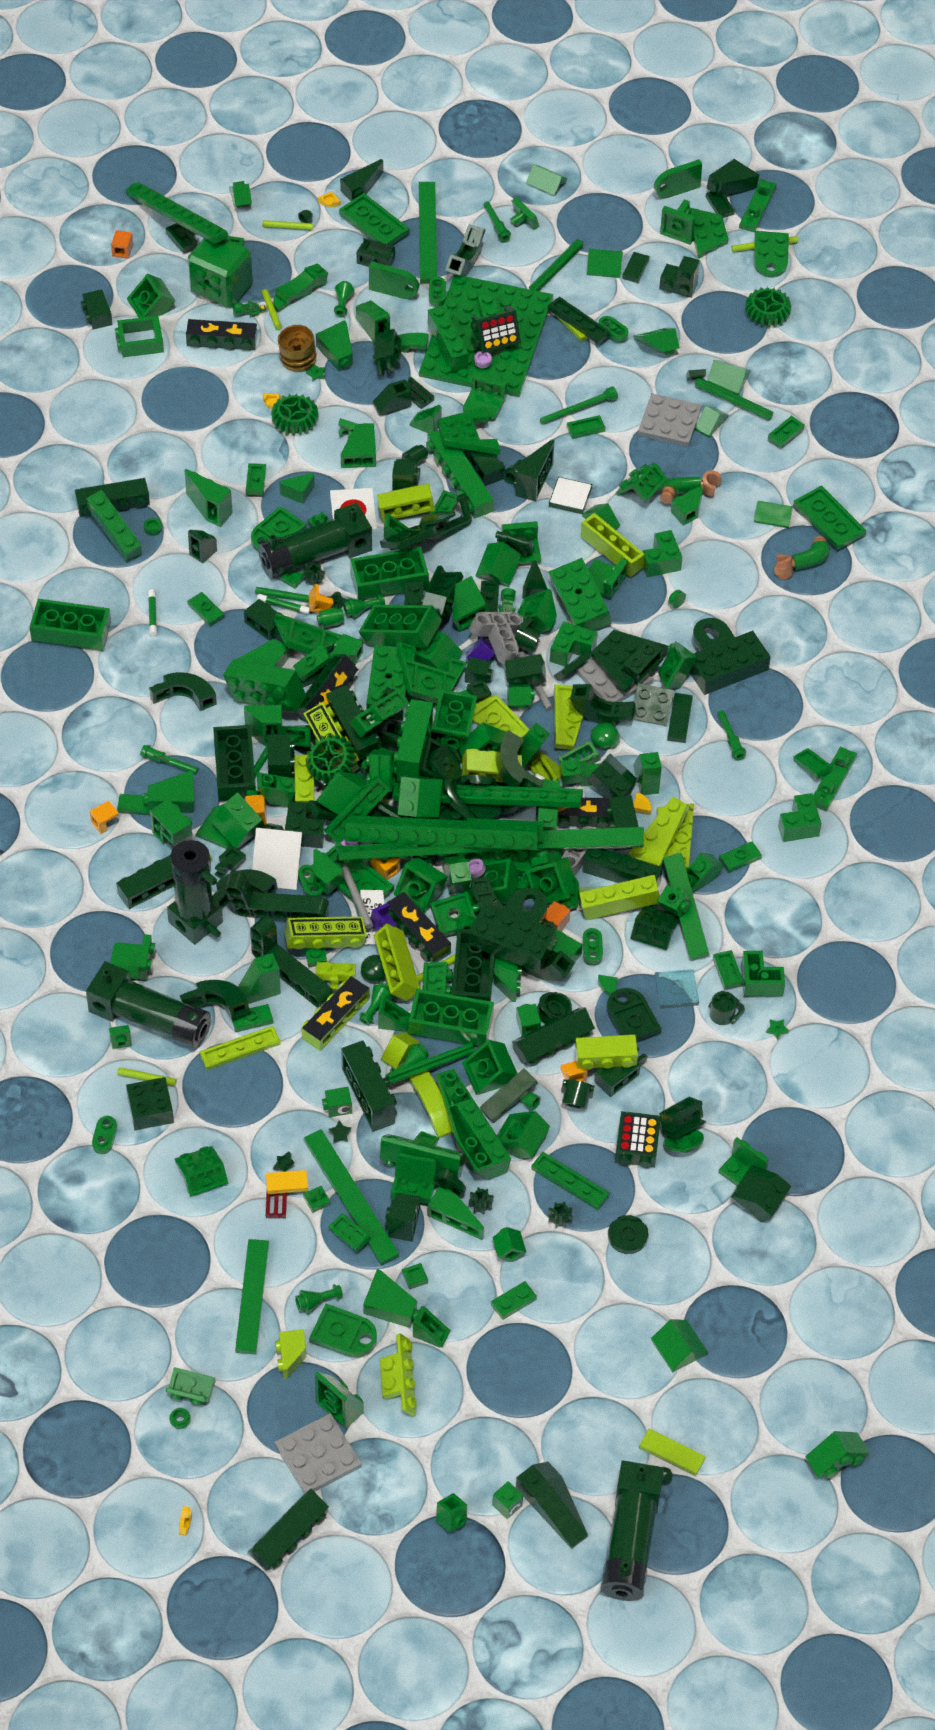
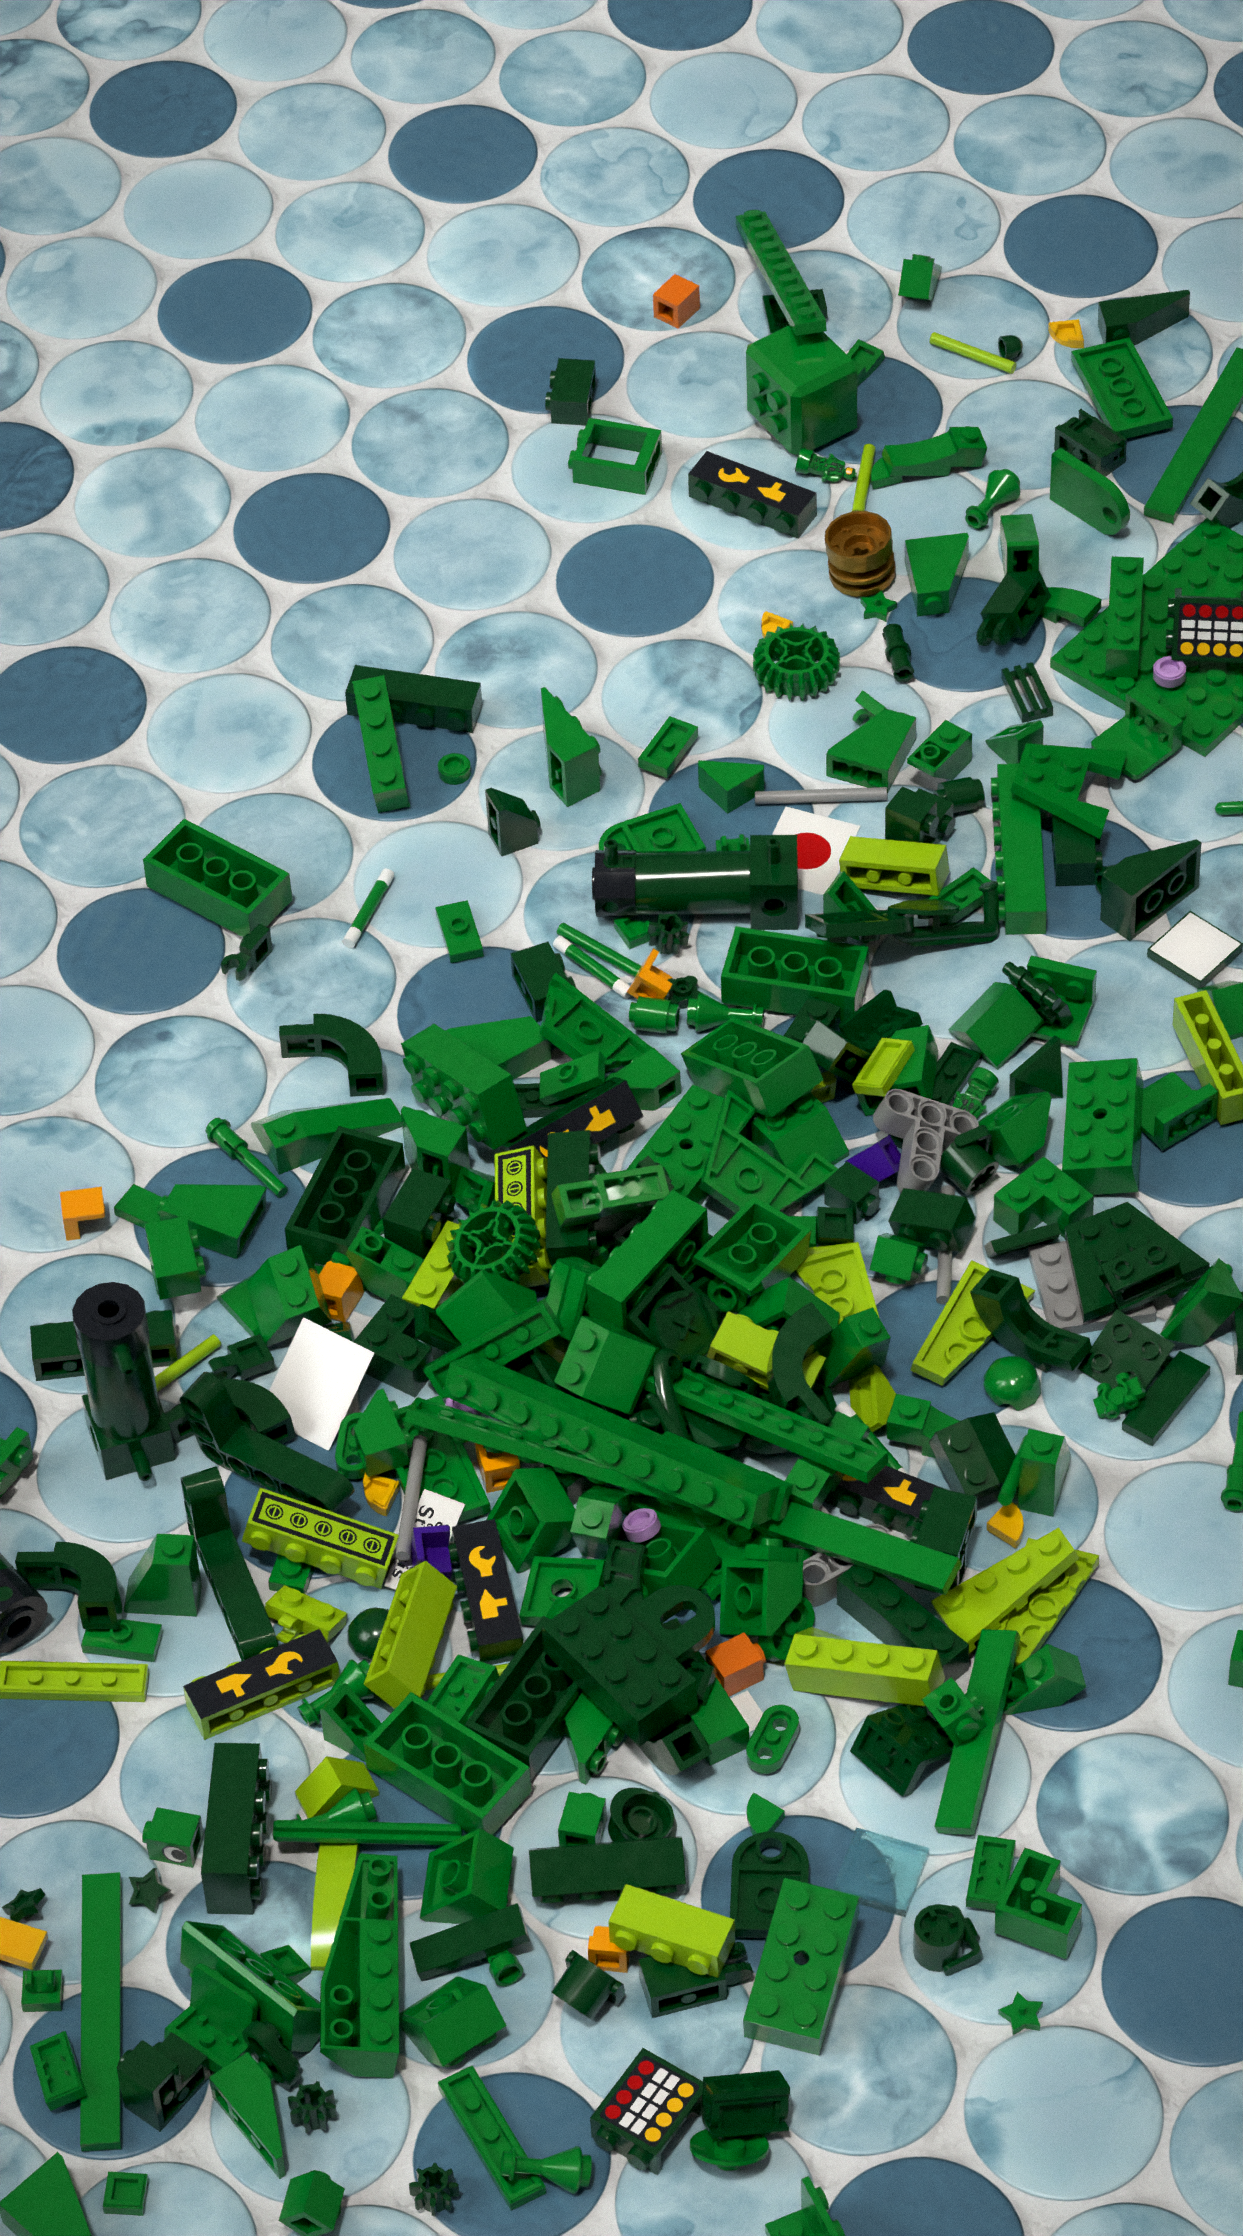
camera: 30 degrees right, 5 degrees down
(108, 654) = (253, 951): none -> dark green plate
(151, 297) = (672, 399): green slope -> none
(194, 735) = (304, 1134): none -> green wedge
(335, 900) = (380, 1493): none -> yellow tile
(342, 393) = (898, 652): none -> dark green pin
(349, 477) = (820, 795): none -> light grey bar
(393, 397) = (977, 687): dark green slope -> none
(396, 435) = (943, 752): none -> green slope
(437, 291) = (1161, 535): green plate -> none
(462, 604) = (883, 1067): none -> lime tile
(582, 749) = (957, 1391): green slope -> none
(616, 1180) = (566, 2169): none -> green piece
(635, 776) = (1012, 1480): none -> green bar
(658, 727) = (1119, 1399): none -> green piece
(671, 1045) = (795, 2001): none -> green brick
(740, 857) = (1132, 1682): green plate -> none

